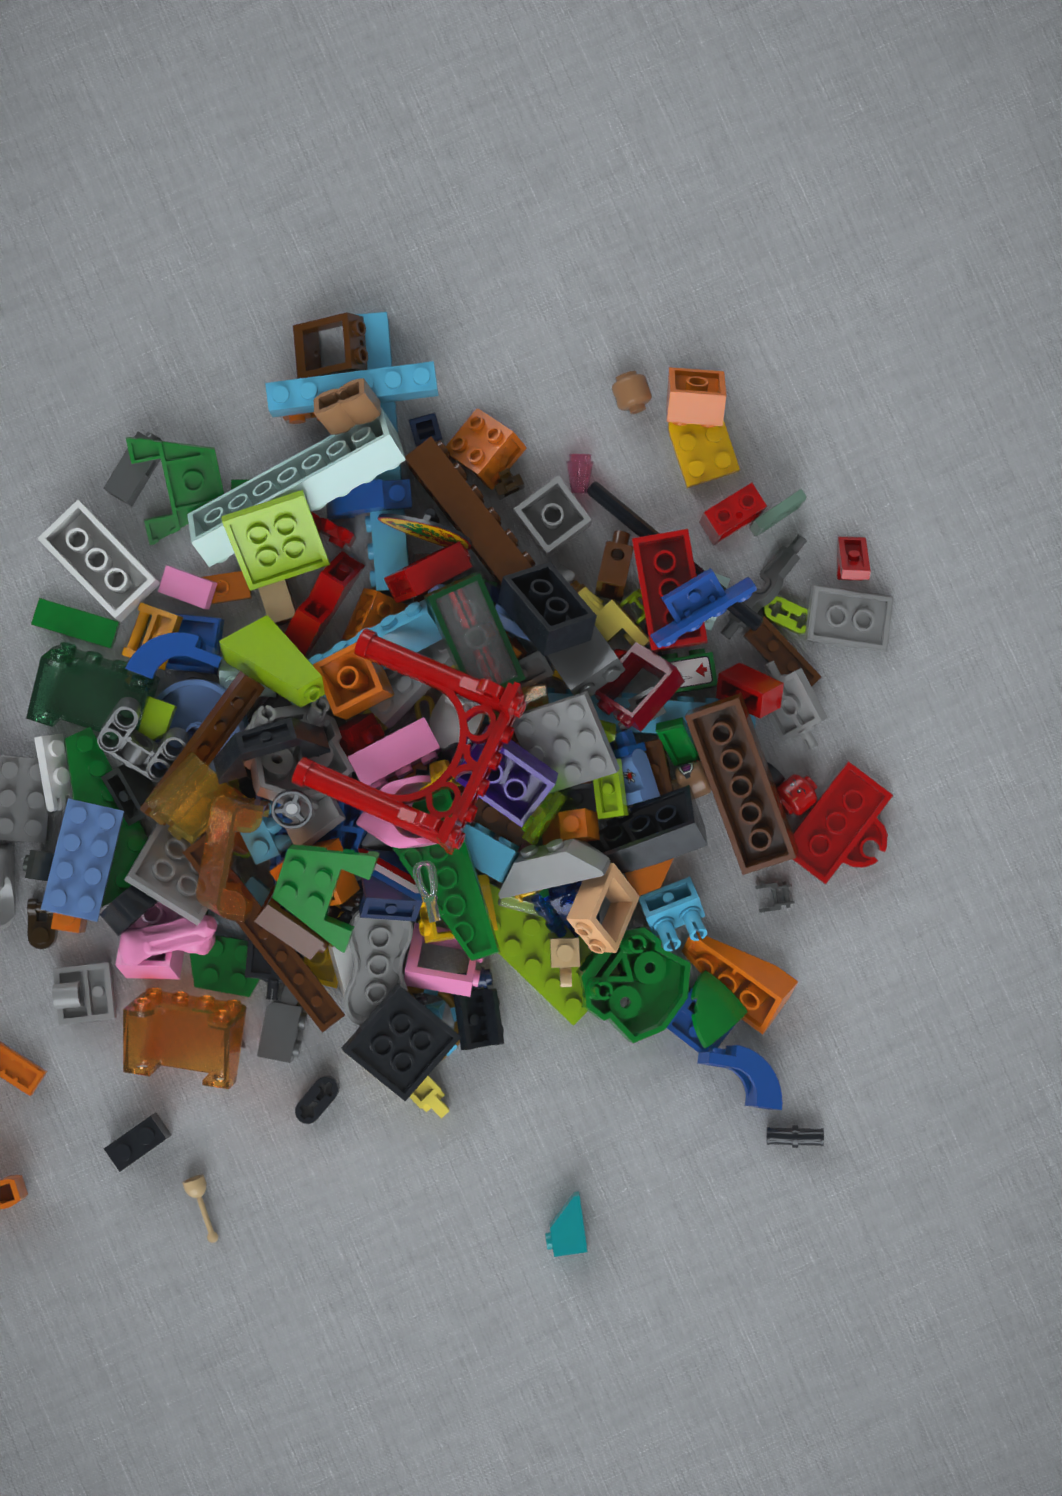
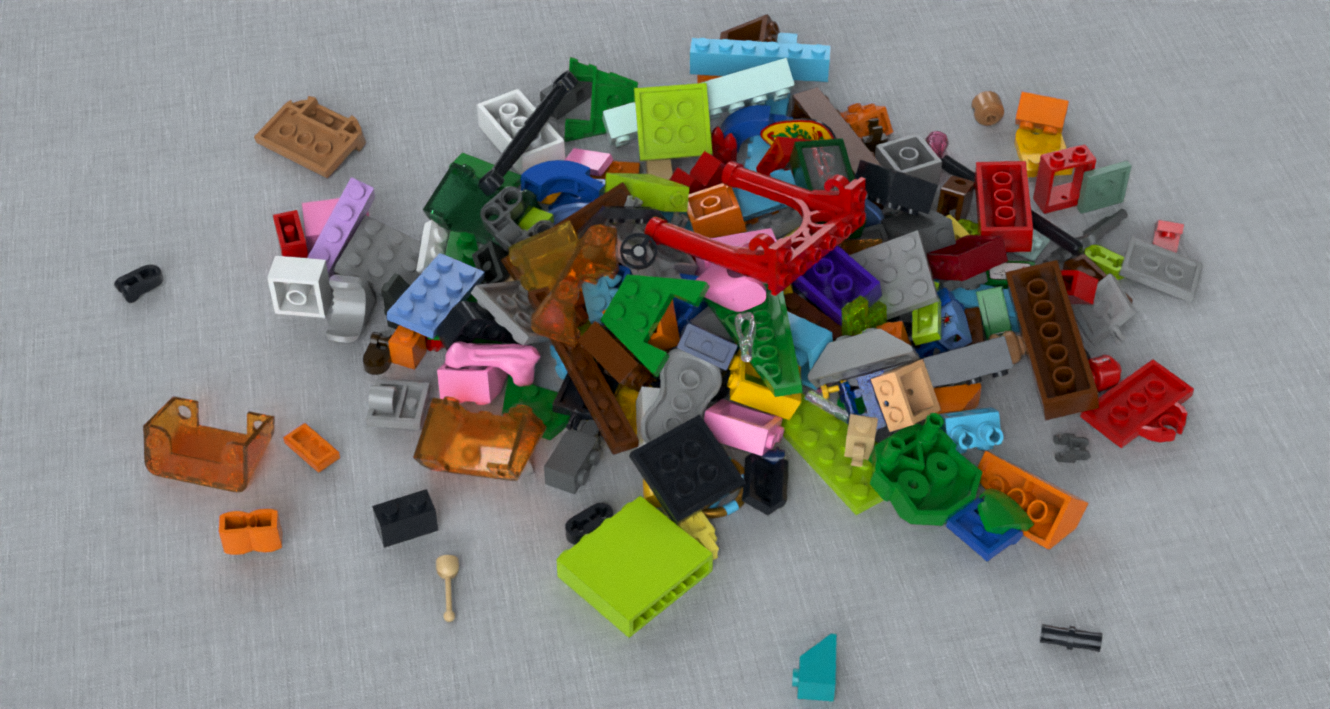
camera: 10 degrees right, 40 degrees down
(131, 488) = (494, 178): none -> black piece
(347, 406) = (754, 52): medium nougat brick -> none
(371, 1146) = (634, 565): none -> lime brick
(698, 602) = (1027, 195): blue bracket -> none
(756, 1074) = (1029, 564): blue arch -> none

